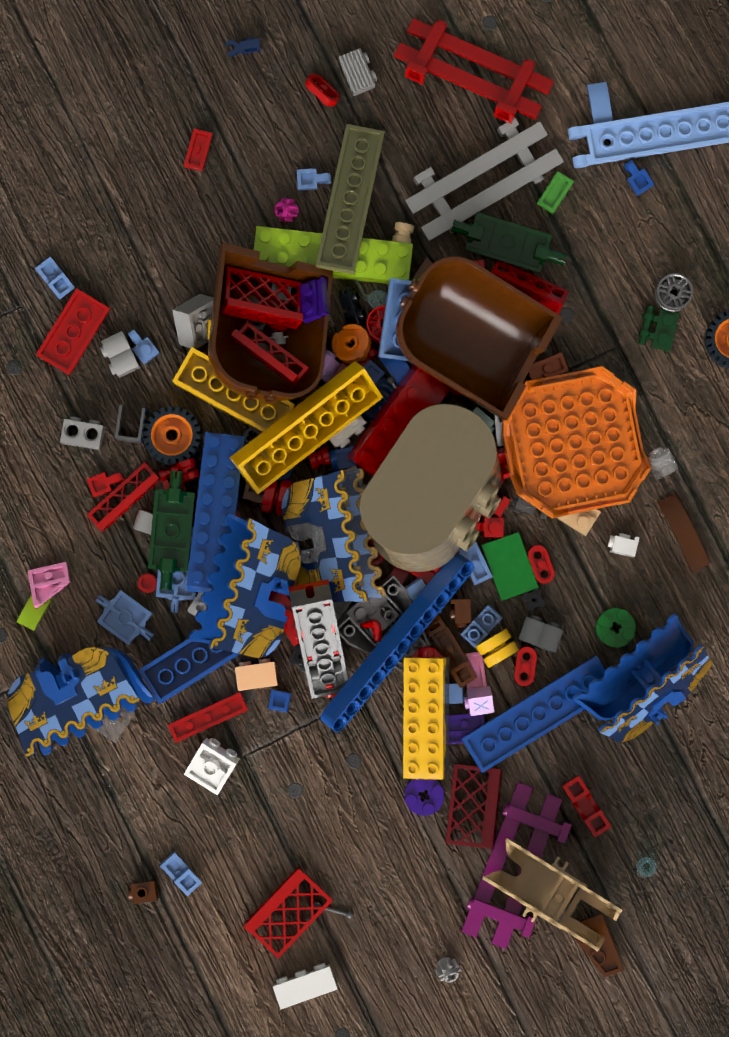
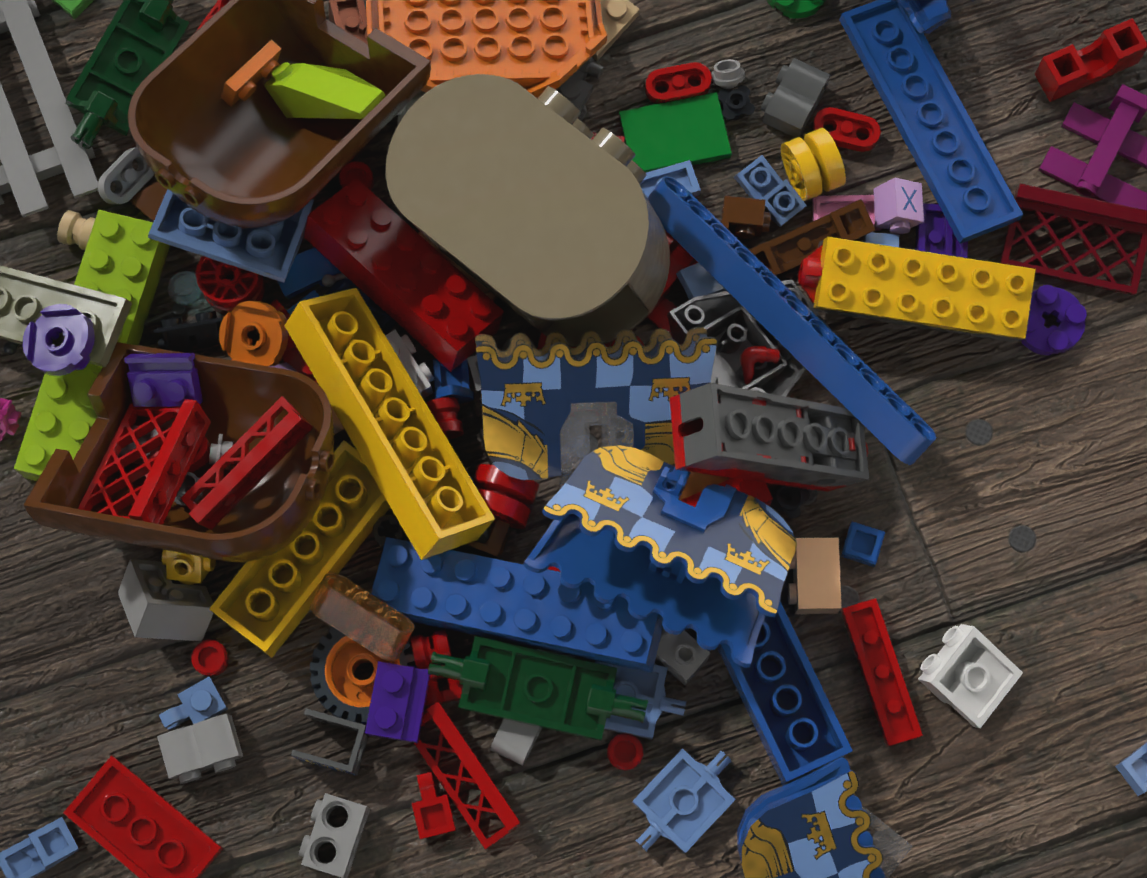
camera: 85 degrees left, 10 degrees down
(155, 456) = (397, 702): none -> dark purple plate
(170, 350) = (210, 658): none -> red tile
(197, 430) = (362, 616): none -> clear orange beam
(332, 231) = (75, 349): none -> plate
(439, 251) = (126, 178): none -> light grey plate
(493, 362) = (321, 92): none -> lime wedge
(504, 323) = (244, 81): none -> orange plate
(550, 592) = (727, 74): none -> light grey plate

